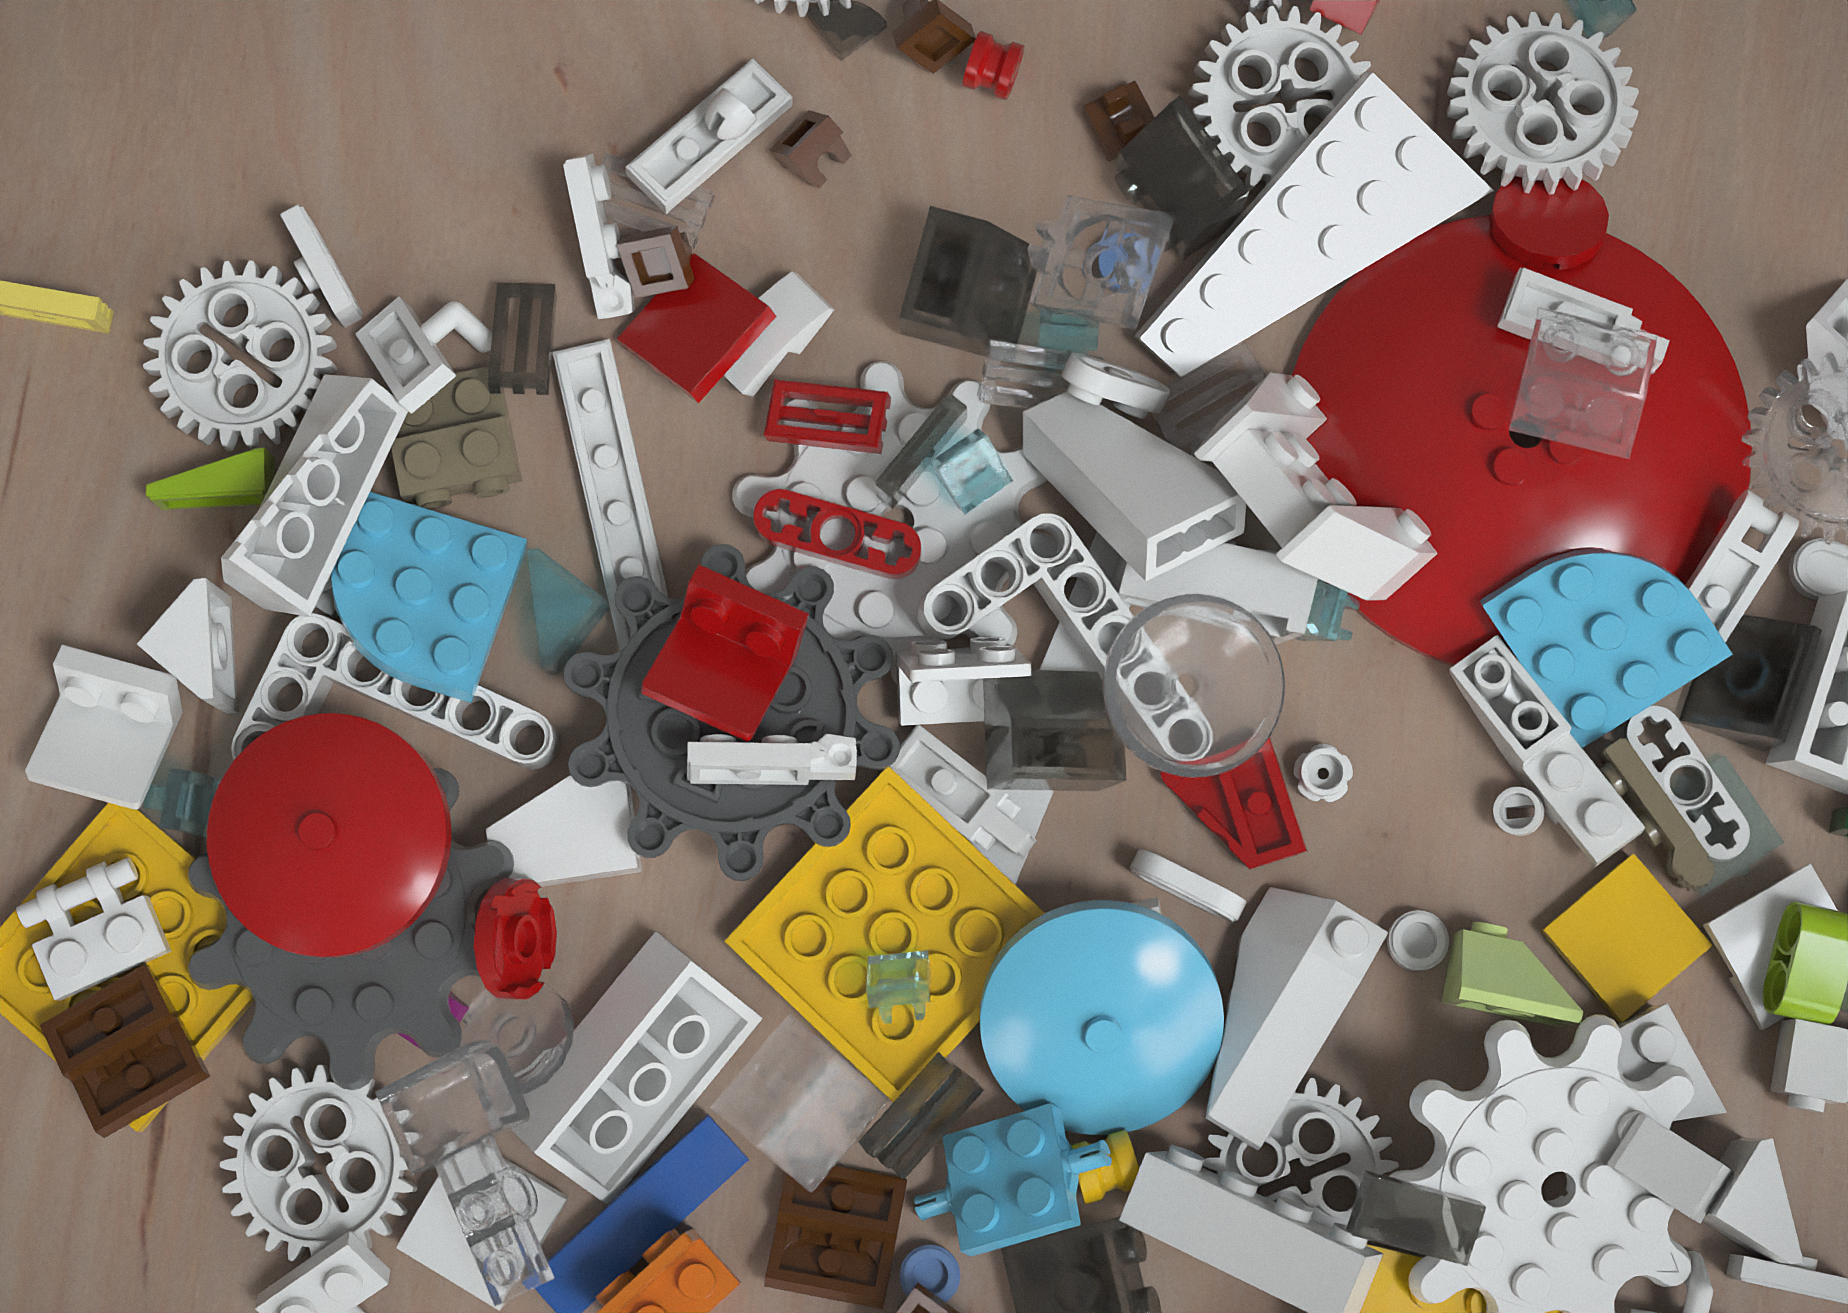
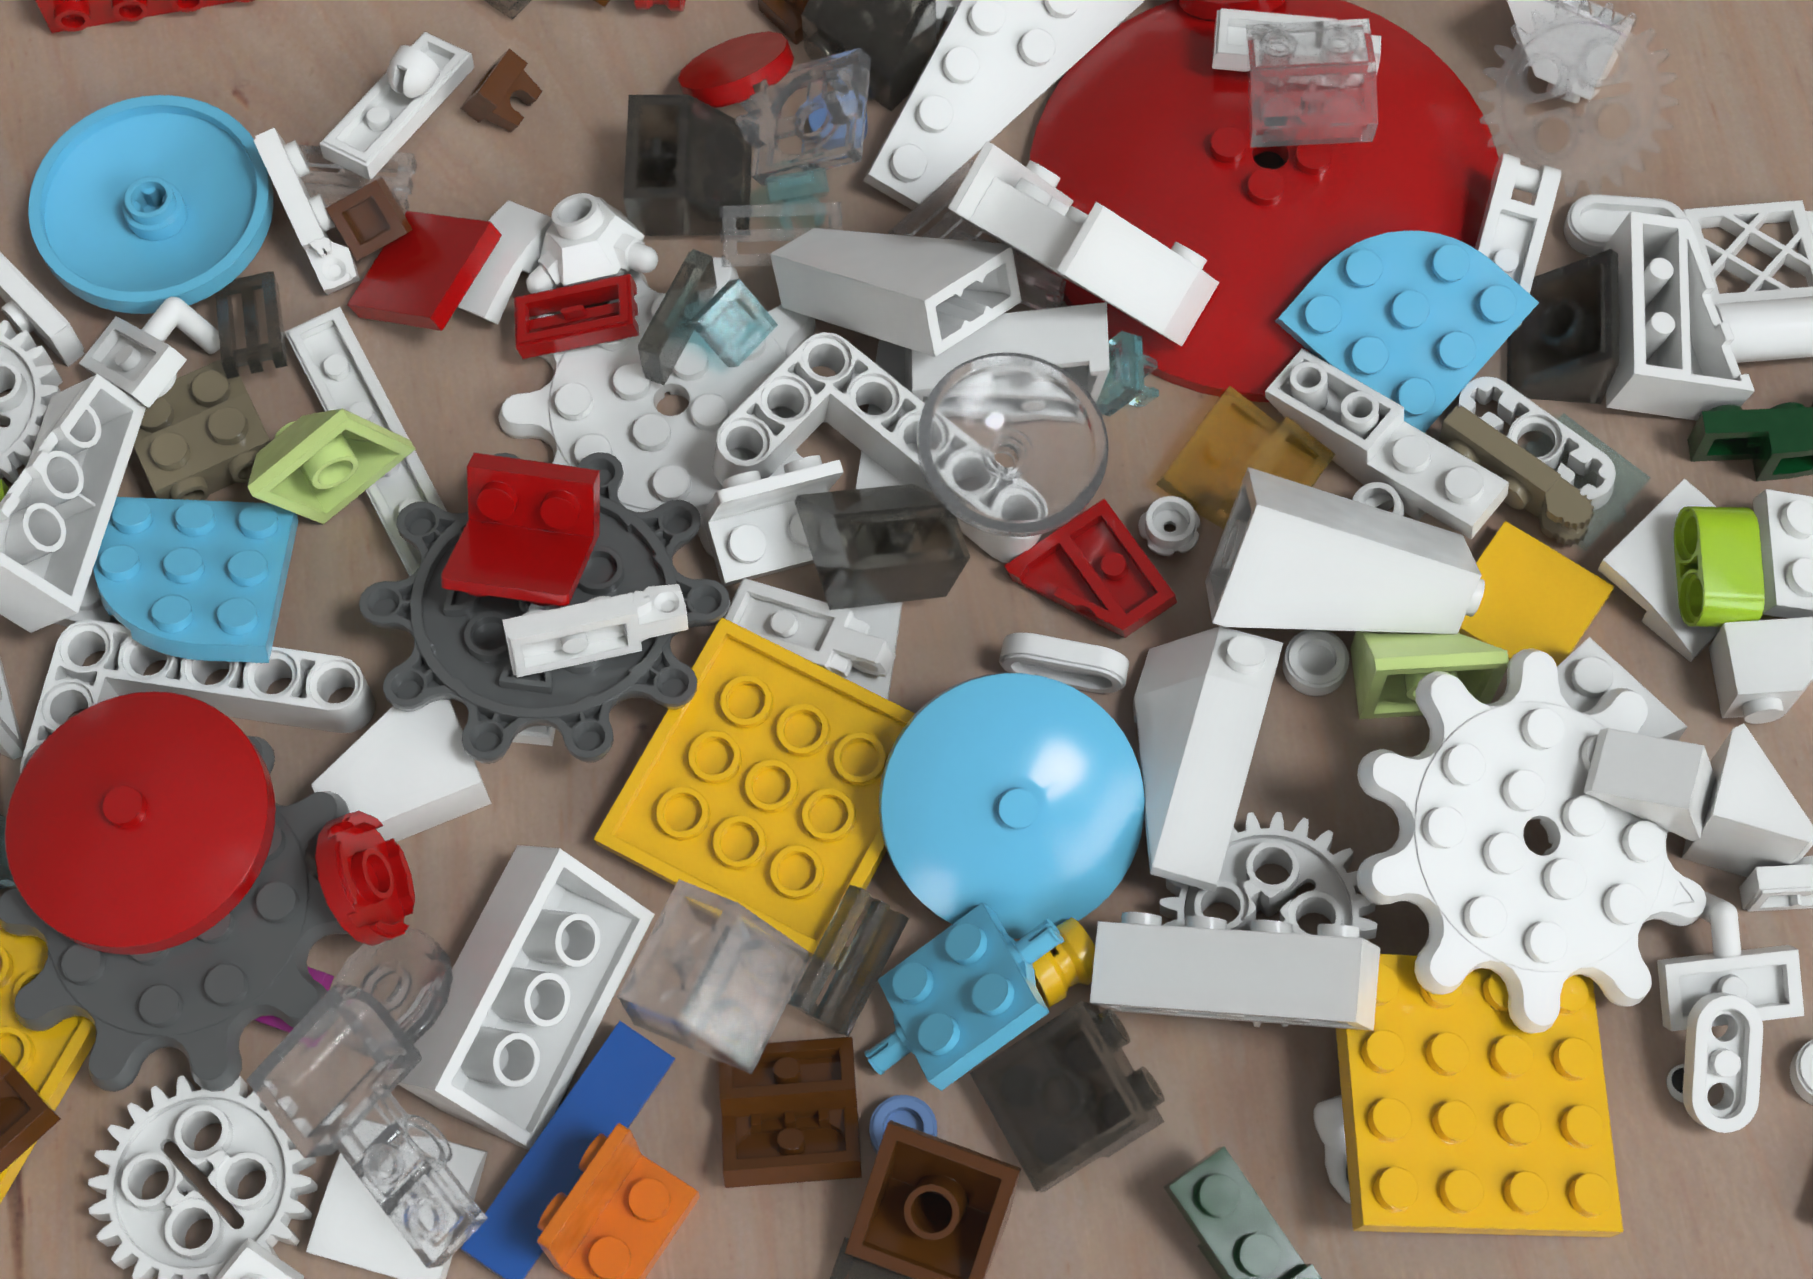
camera: 15 degrees left, 15 degrees down
(453, 189) = (151, 203): none -> medium azure dish
(557, 510) = (324, 463): none -> yellowish green slope
(563, 610) = (348, 557): clear light blue slope -> none
(791, 535) = (594, 398): red beam -> none
(858, 346) = (588, 245): none -> white rock
(899, 981) = (789, 817): clear light blue tile -> none
(1041, 189) = (731, 69): none -> red tile
(1130, 390) = (837, 206): white plate -> none
(1410, 733) = (1230, 440): none -> clear yellow slope
(1416, 1218) = (1403, 892): clear smoke tile -> none
(1460, 871) = (1336, 565): none -> white slope

